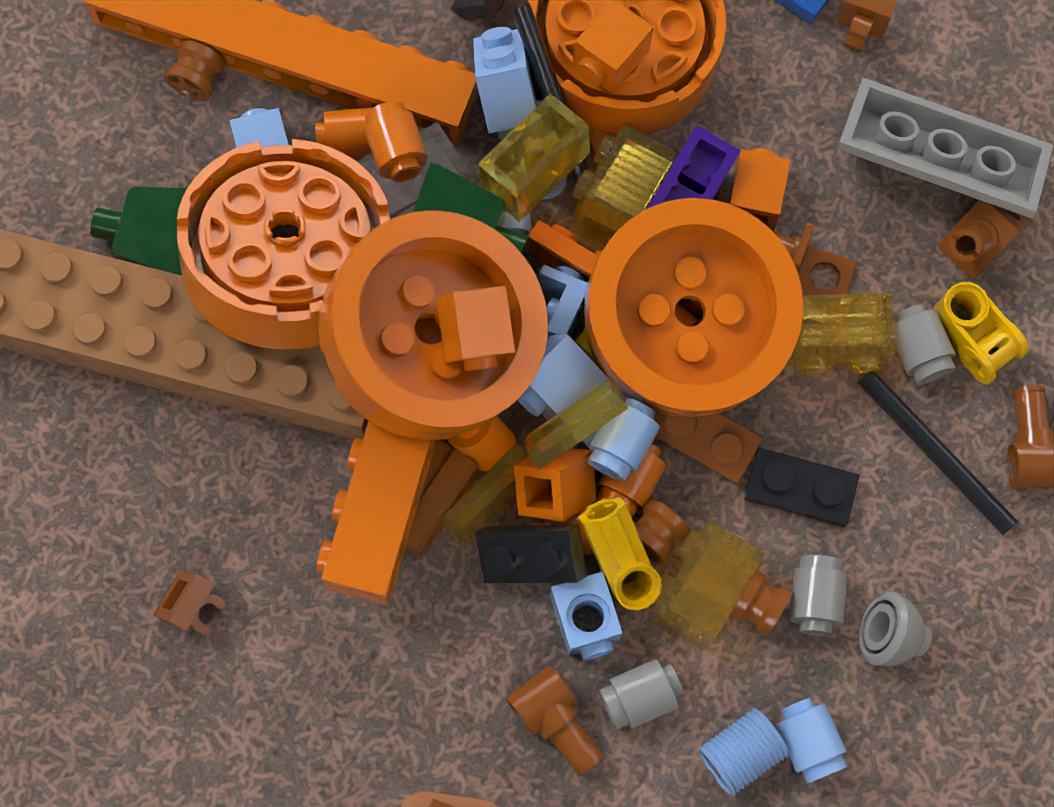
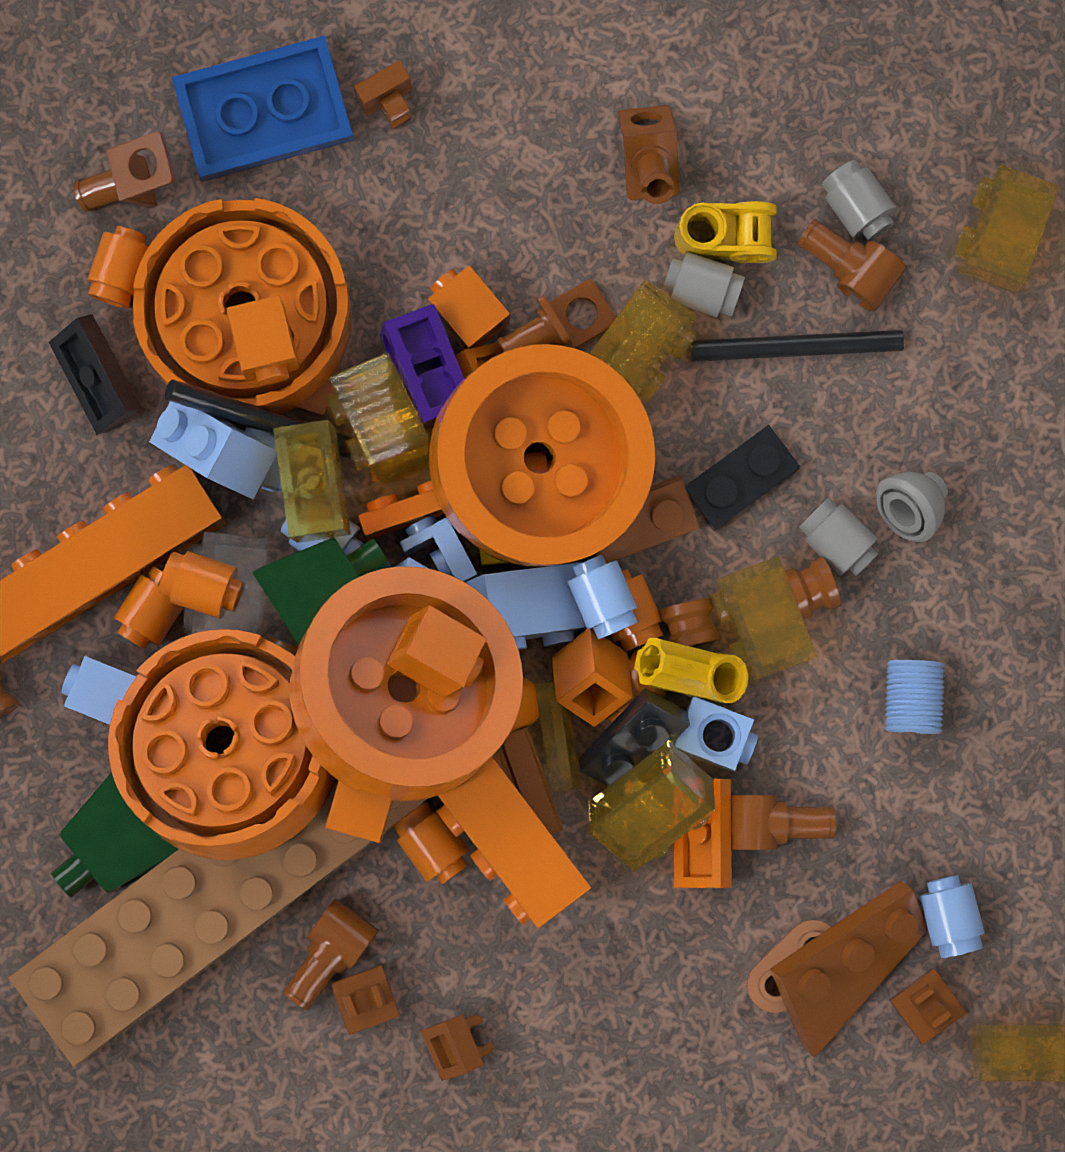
camera: 55 degrees left, 10 degrees up
(174, 509) = (365, 999): none -> dark orange tile
(200, 453) = (334, 945): none -> dark orange pin
(308, 377) = (359, 813): none -> orange brick
(327, 464) = (431, 844): none -> orange brick
(490, 606) = (652, 806): none -> clear yellow brick
(501, 666) = (705, 854): none -> orange plate
(575, 423) = (564, 626): clear yellow tile -> none
(641, 694) = (809, 740): light grey brick -> none
(812, 740) = (946, 636): light blue brick -> none
(946, 147) = (558, 130): light grey slope -> none

